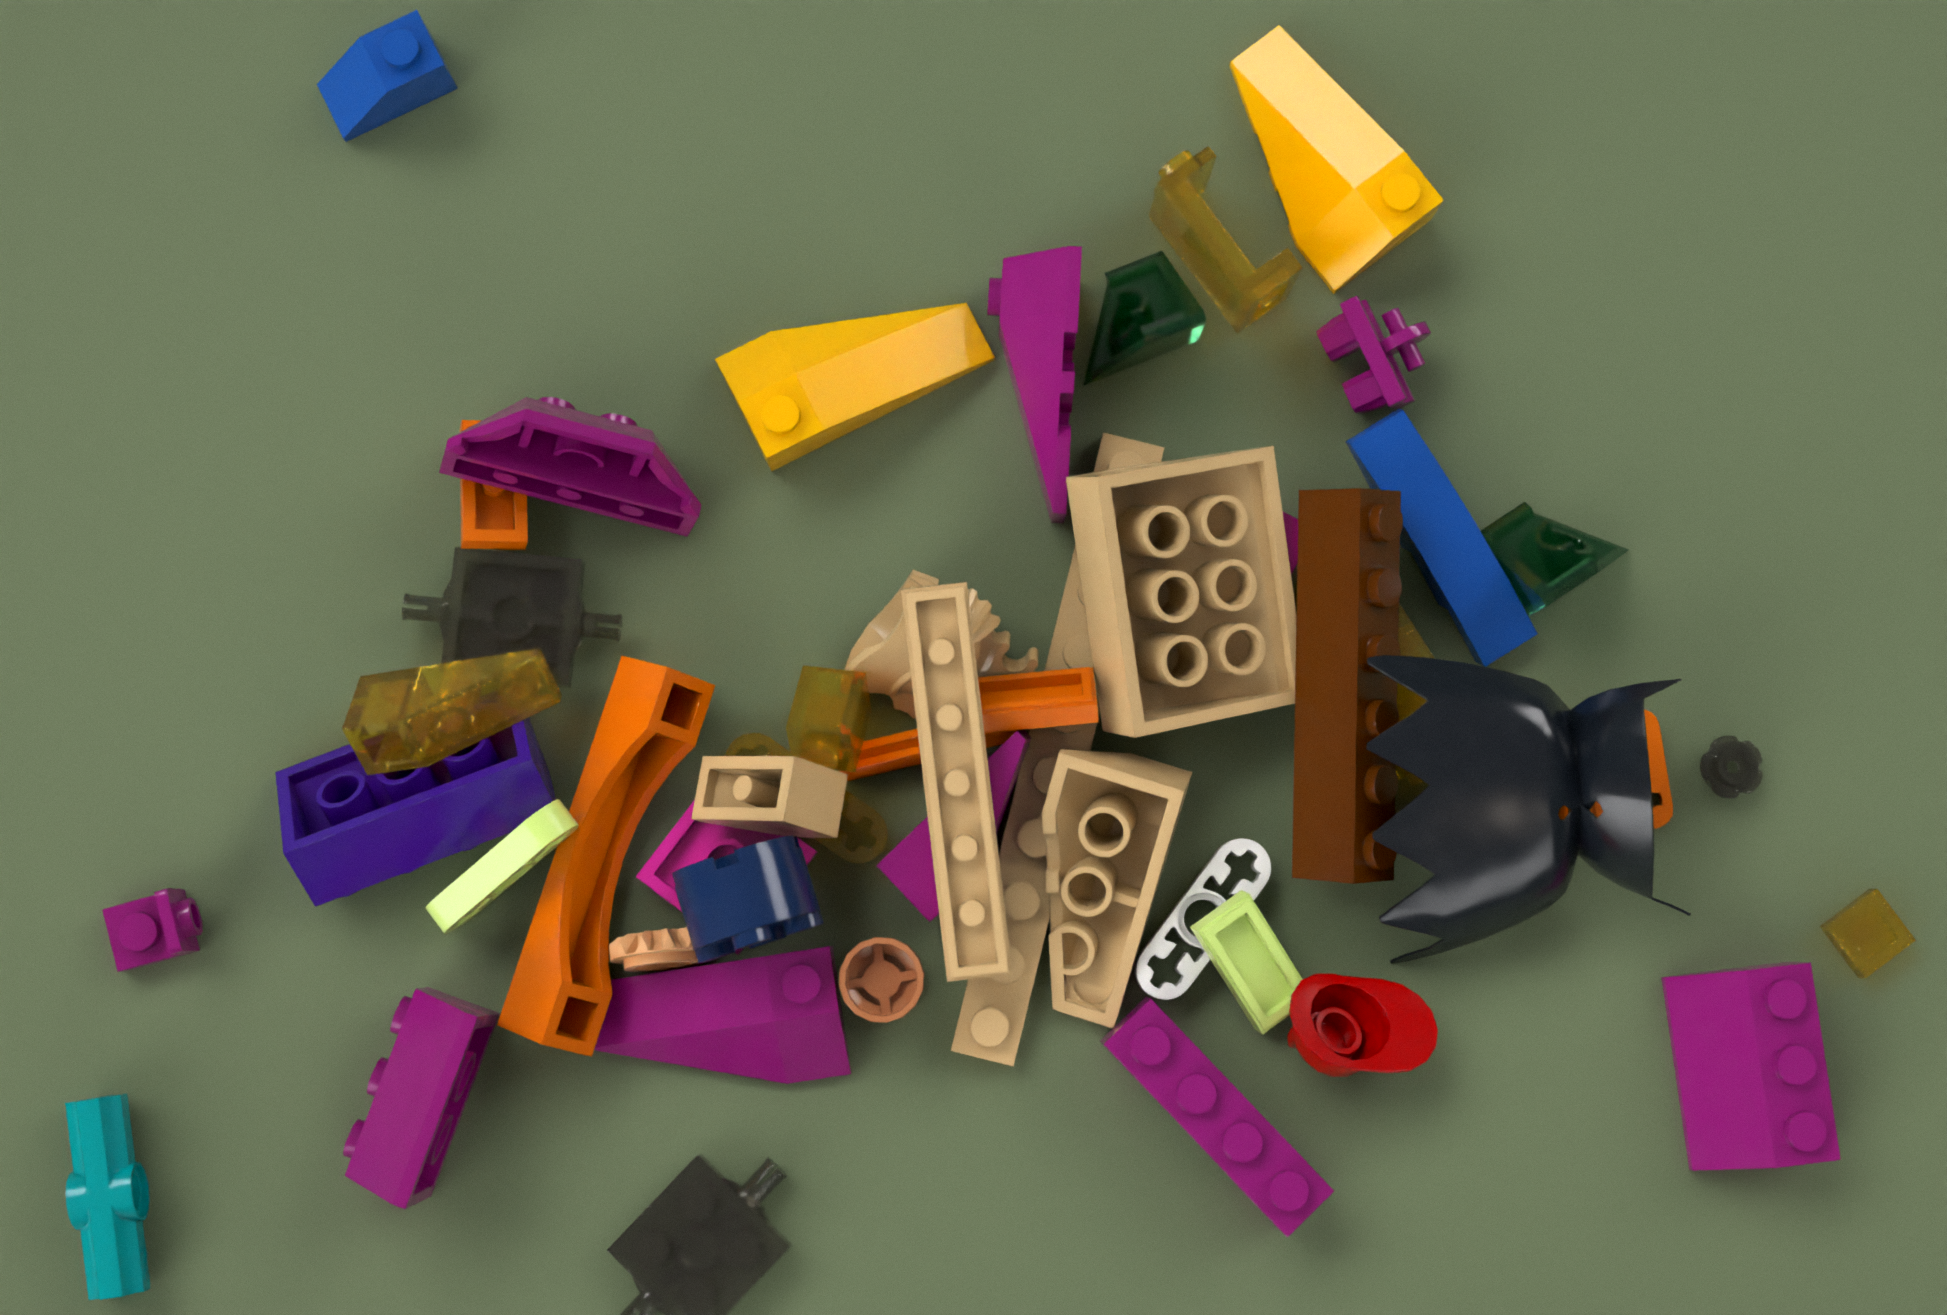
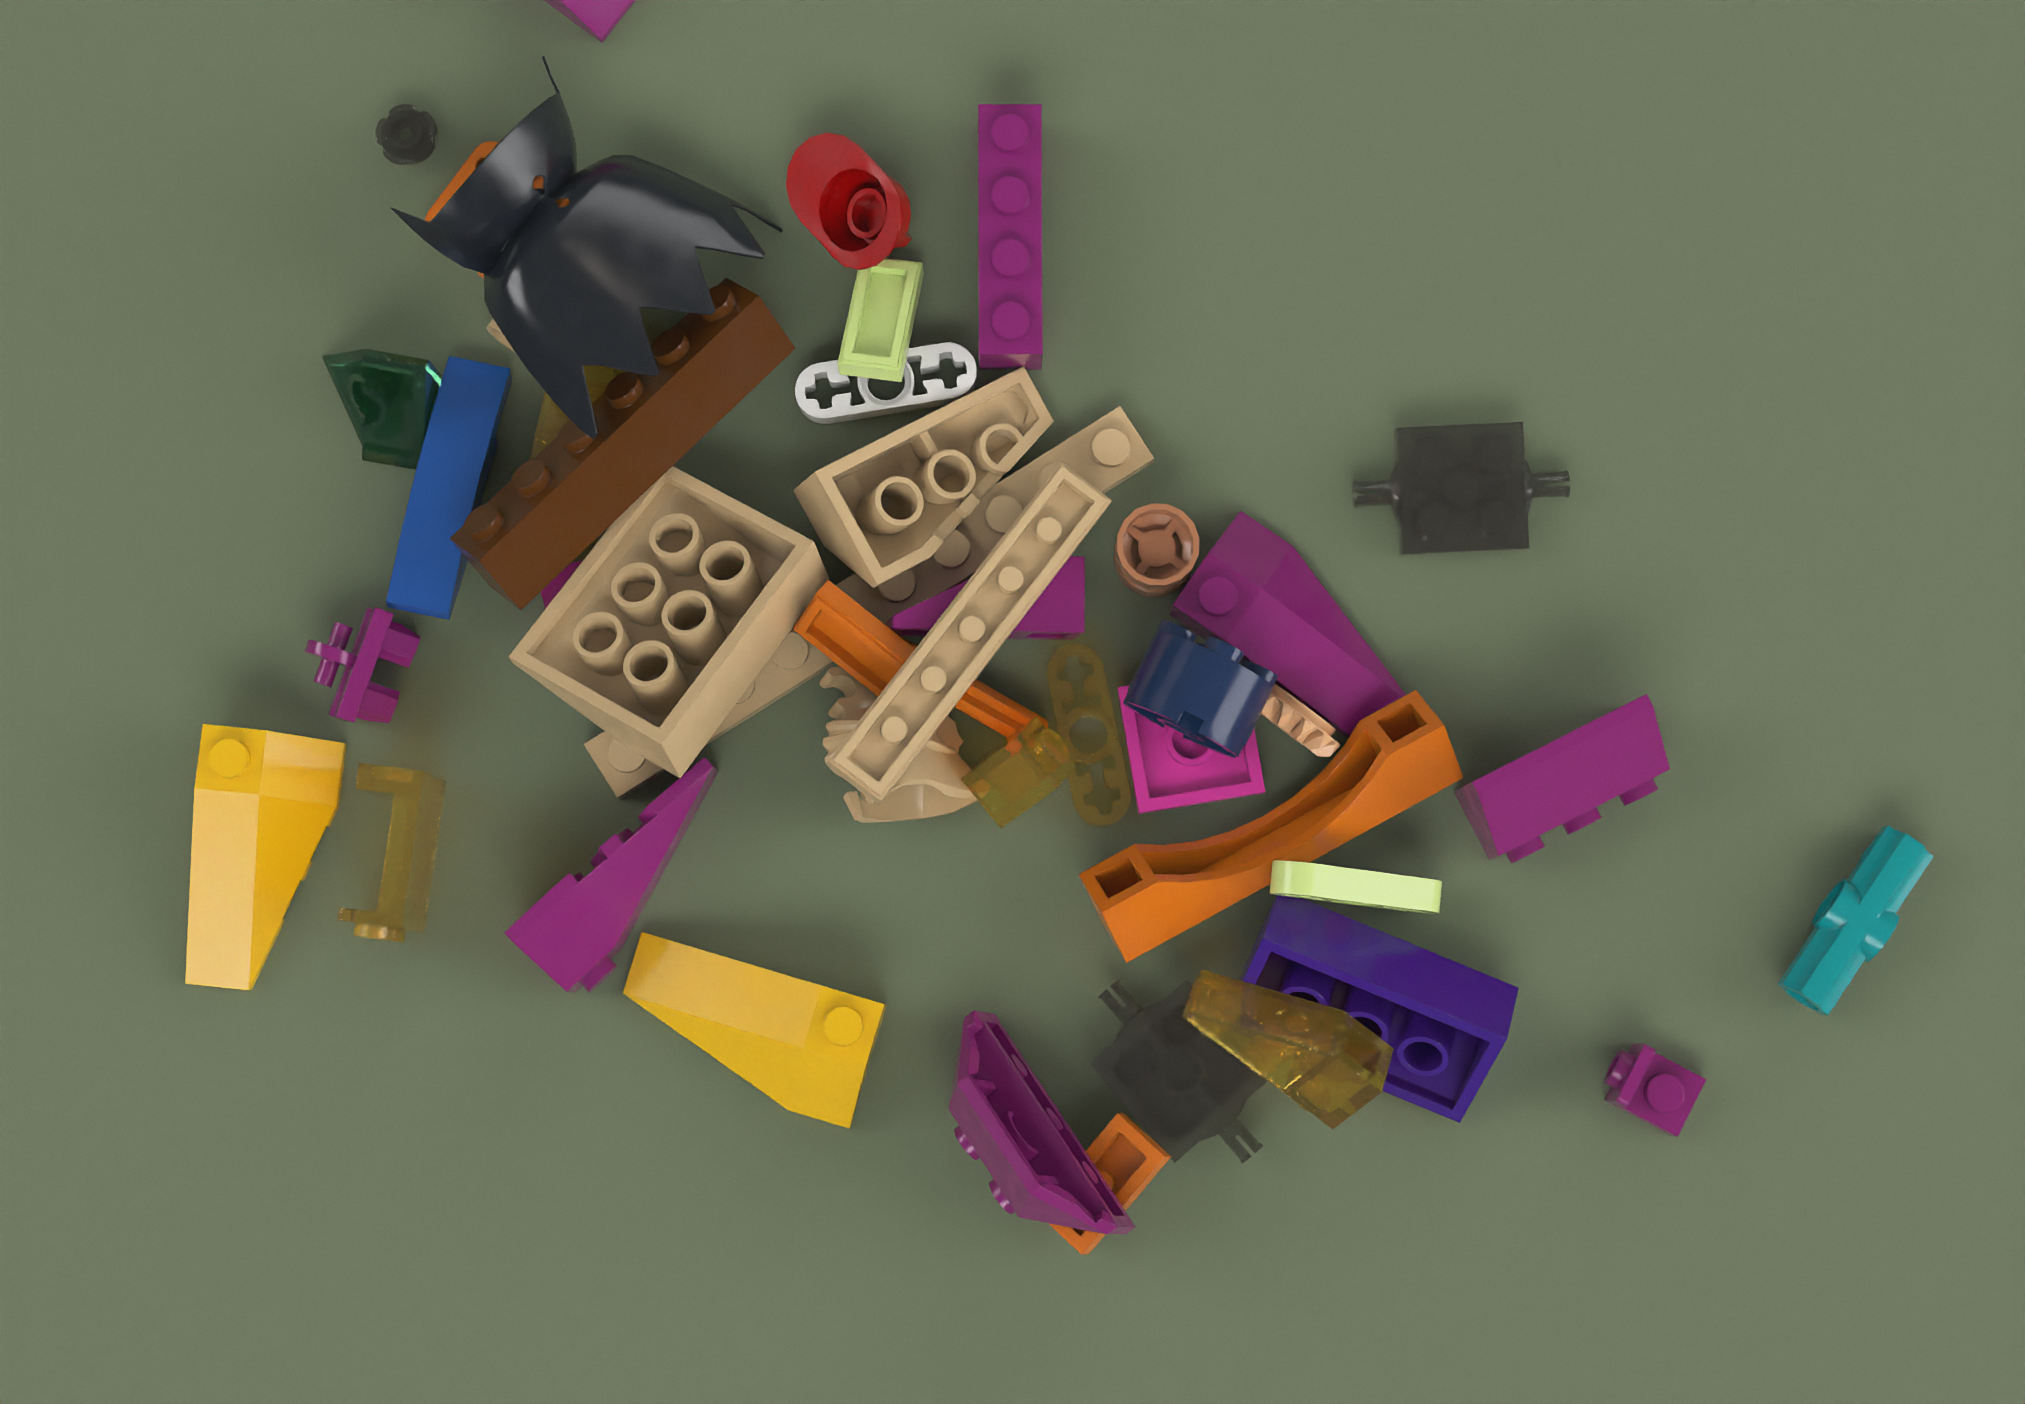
camera: 135 degrees left, 0 degrees up
(770, 795) = (1114, 754): tan slope -> none
(1143, 316) = (503, 859): clear green slope -> none

